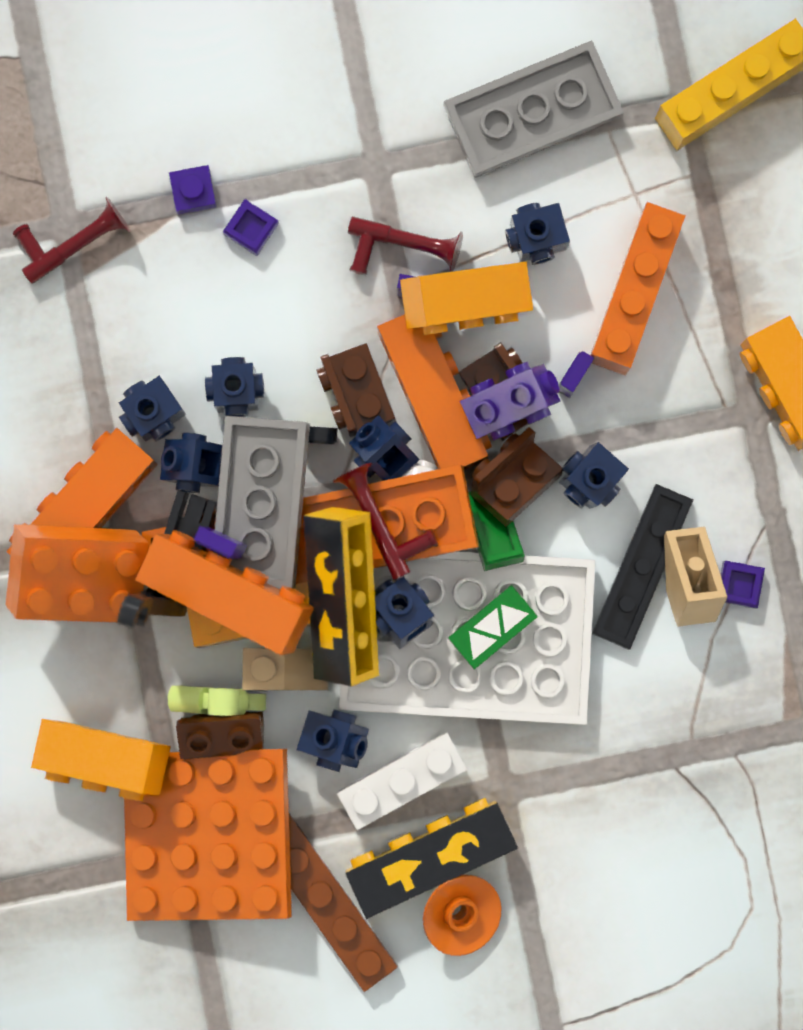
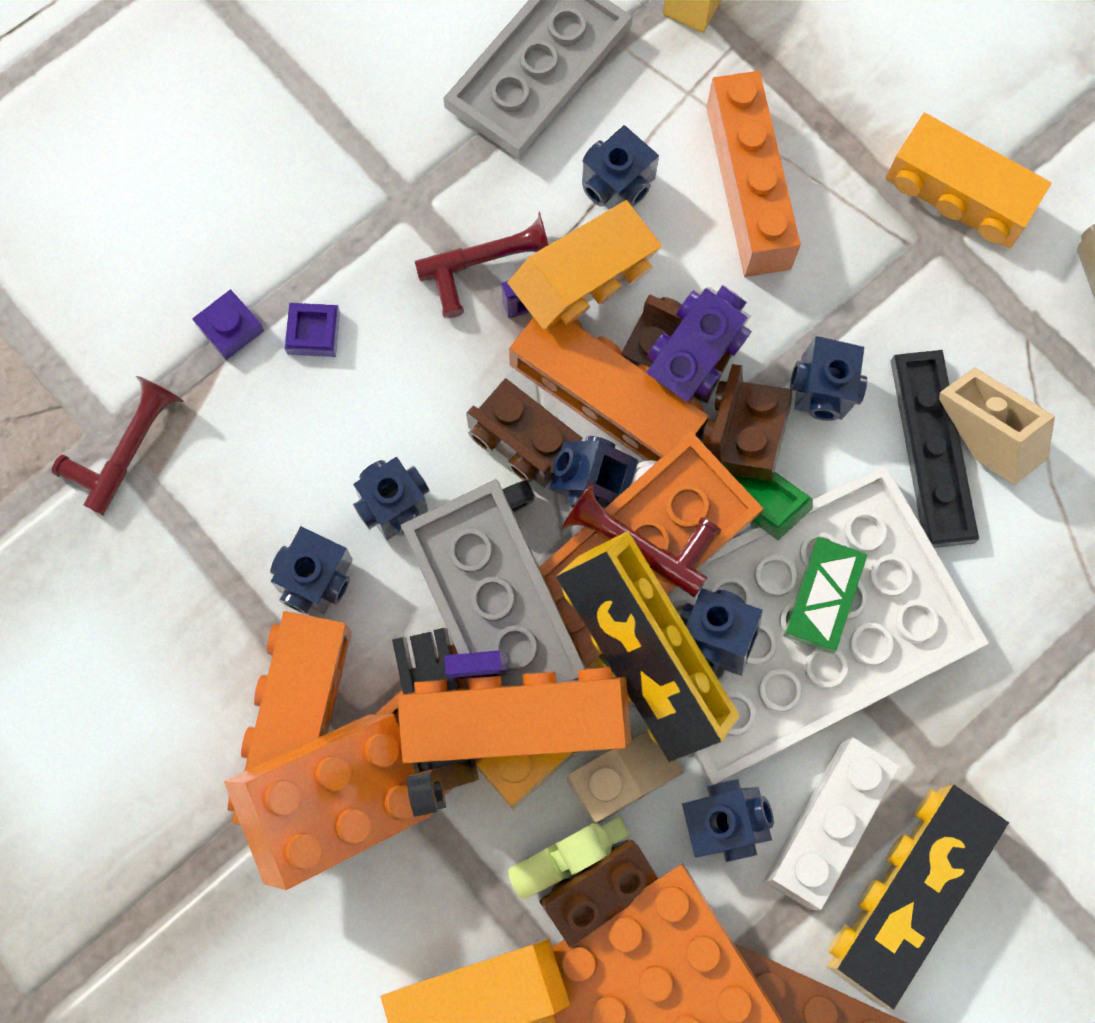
camera: 30 degrees left, 10 degrees down
(191, 462) = (391, 603): dark blue brick -> none
(474, 922) = (992, 939): orange dish -> none
(575, 373) = (744, 282): dark purple tile -> none
(742, 583) = (1055, 400): dark purple tile -> none

